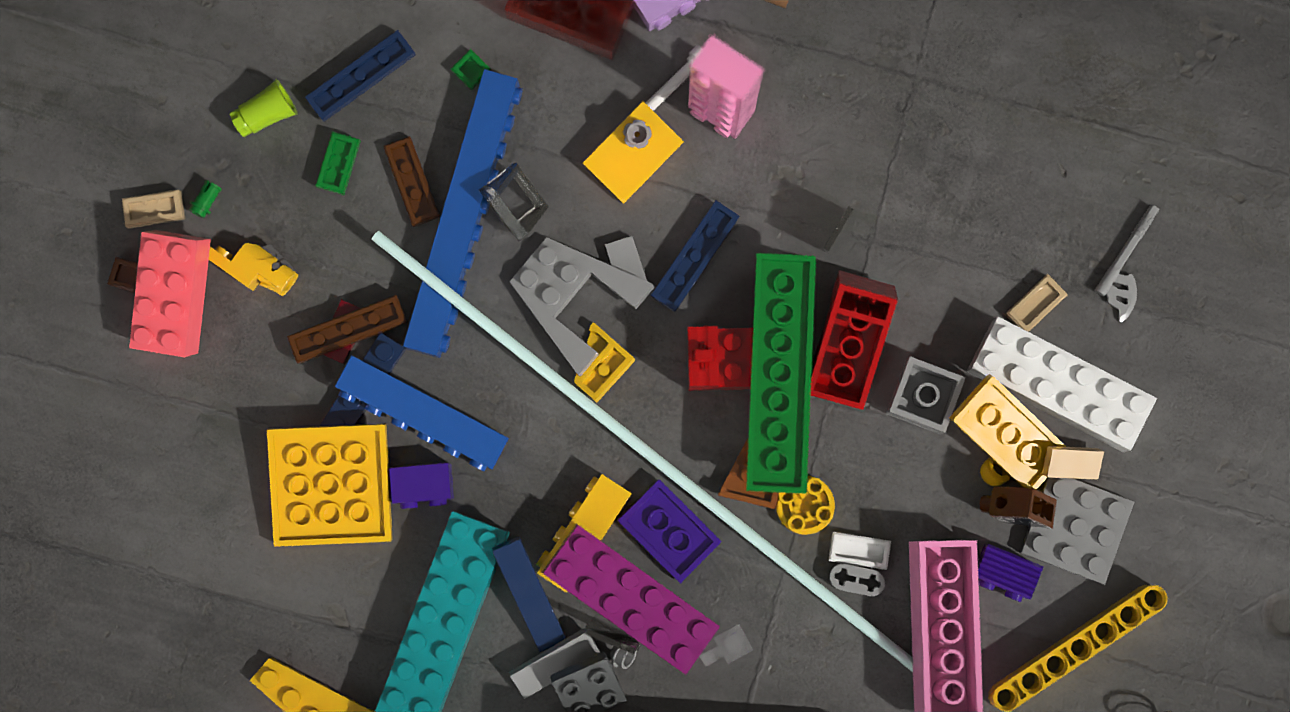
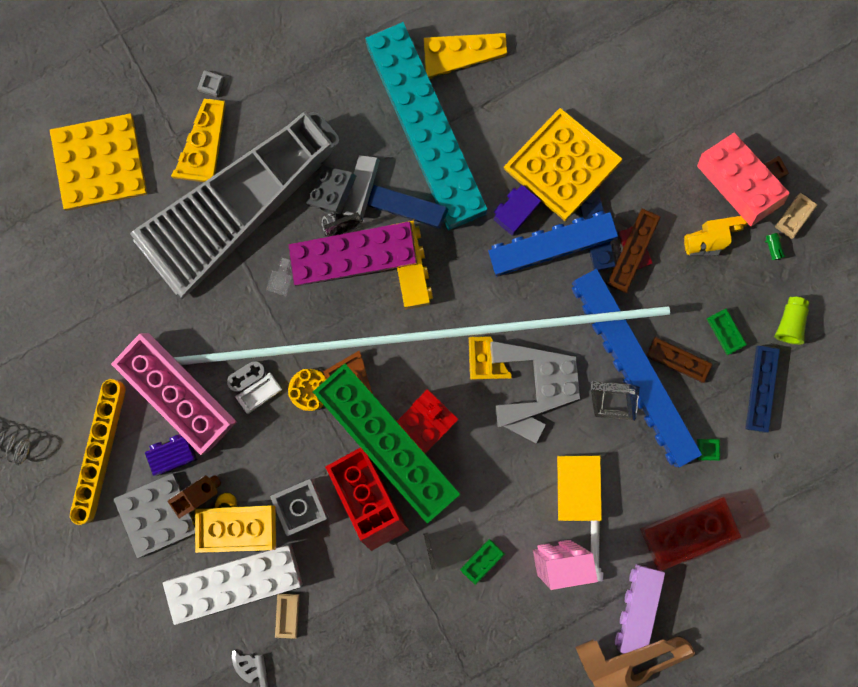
camera: 130 degrees right, 0 degrees up
(637, 126) = (580, 497): light grey plate -> none
(669, 531) = (366, 308): dark purple plate -> none
(695, 256) = (492, 464): dark blue plate -> none
(795, 173) = (482, 561): none -> green plate
(1072, 462) = (188, 547): tan tile -> none

